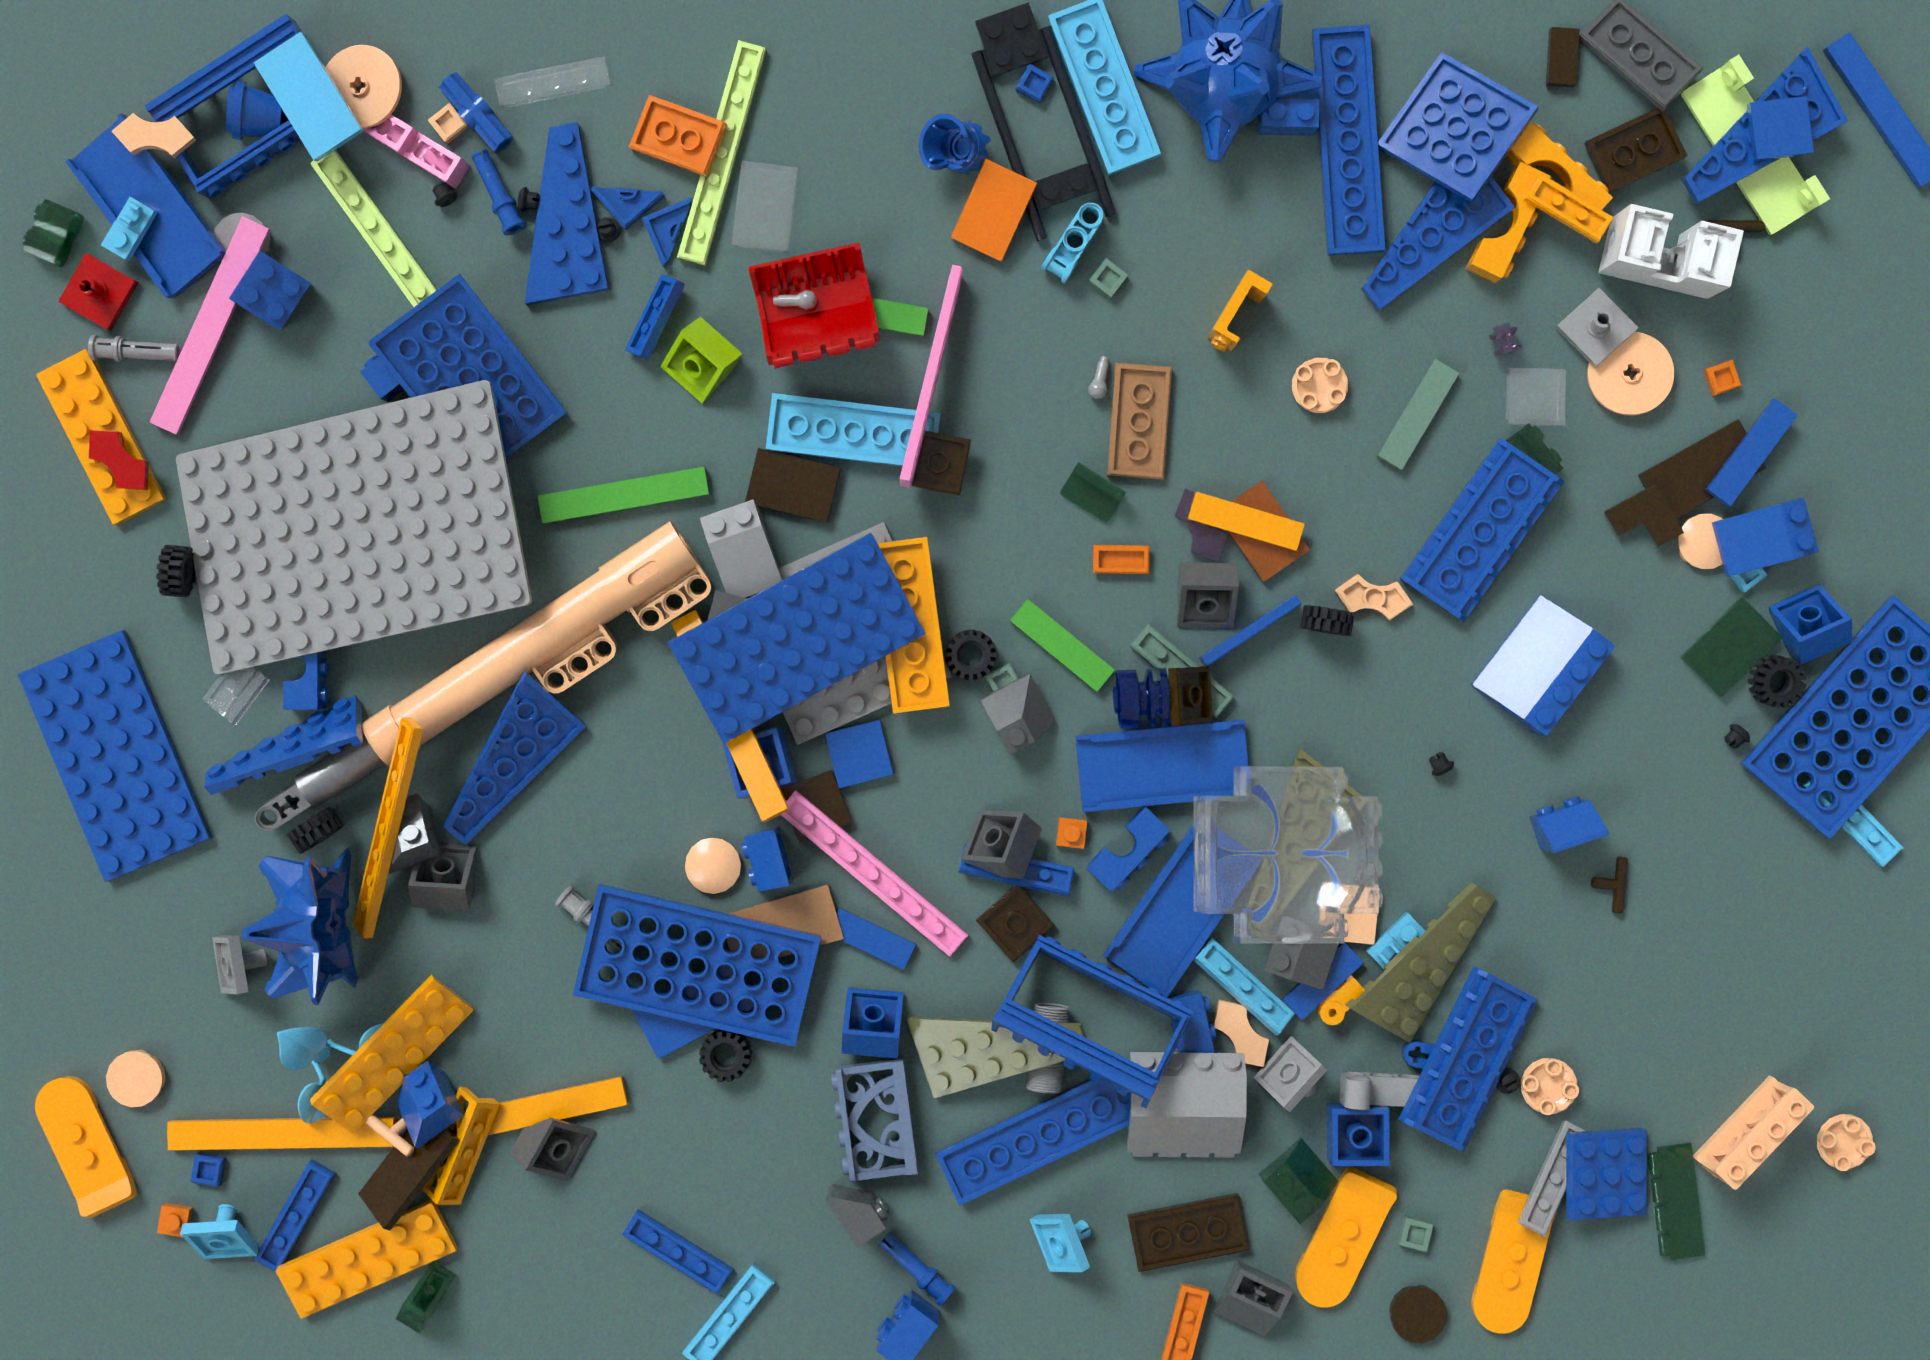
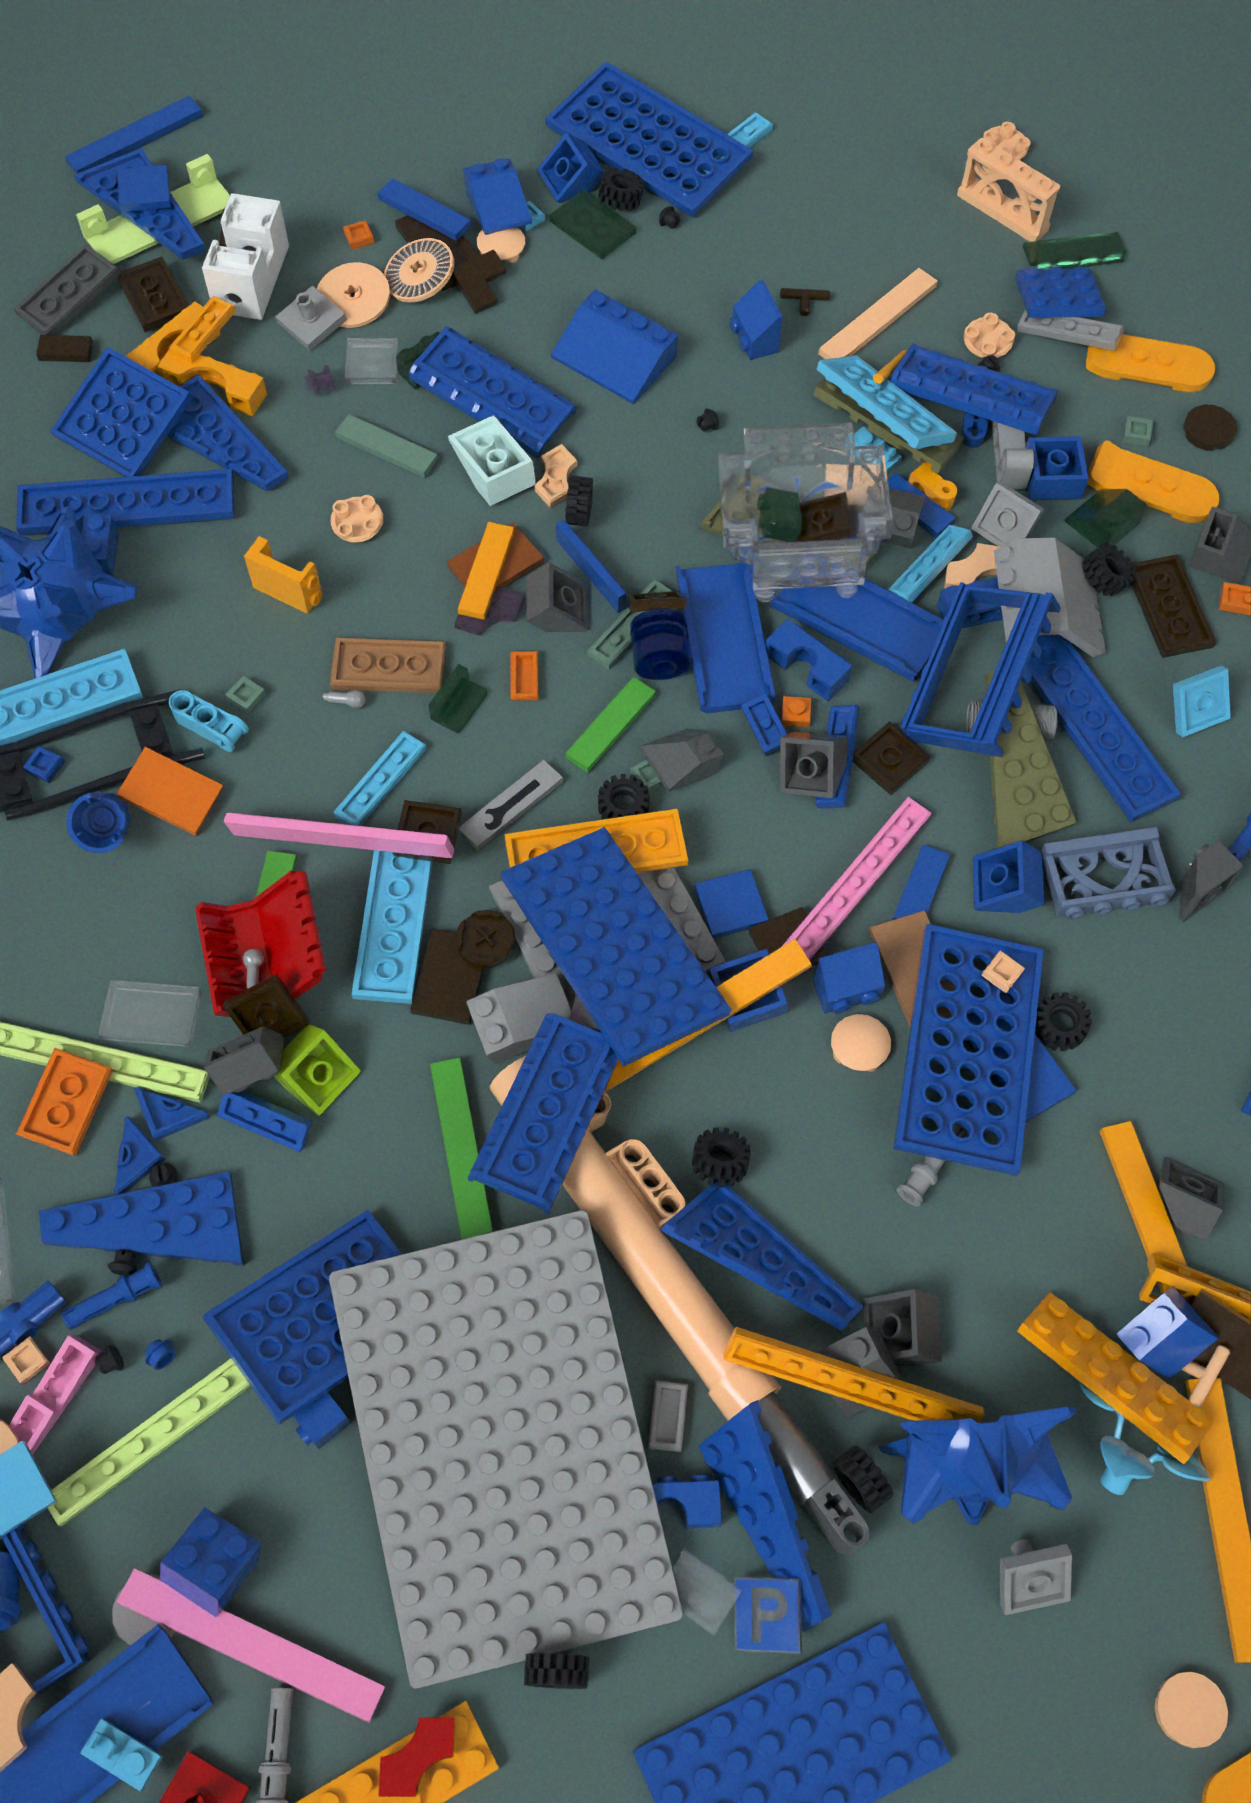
camera: 95 degrees left, 25 degrees down
(214, 744) = (768, 1615): none -> blue piece
(380, 670) = (668, 1417): none -> light grey tile
(447, 237) = (160, 1354): none -> blue plate
(617, 733) = (721, 1170): none -> black tyre
(628, 570) = (546, 1112): none -> blue ladder
(699, 298) = (245, 1060): none -> dark grey slope
(748, 314) = (268, 1006): none -> dark brown tile
(768, 1004) = (1003, 971): none -> light nougat tile
(825, 518) = (485, 939): none -> dark brown tile
(973, 544) = (510, 805): none -> light grey tile
(1005, 415) = (380, 780): none -> medium azure tile
(1053, 800) = (764, 723): none -> blue plate
(1222, 1160) = (1108, 569): none -> black tyre
(1283, 875) = (825, 519): none -> dark brown tile
(1289, 831) = (779, 514): none -> clear green brick
(1387, 528) = (493, 460): none -> light aqua slope
(1443, 958) = (886, 402): none -> medium azure plate
(1500, 970) = (889, 368): none -> light orange bar
(1583, 965) = (879, 316): none -> light nougat tile
(1641, 456) = (419, 270): none -> piece

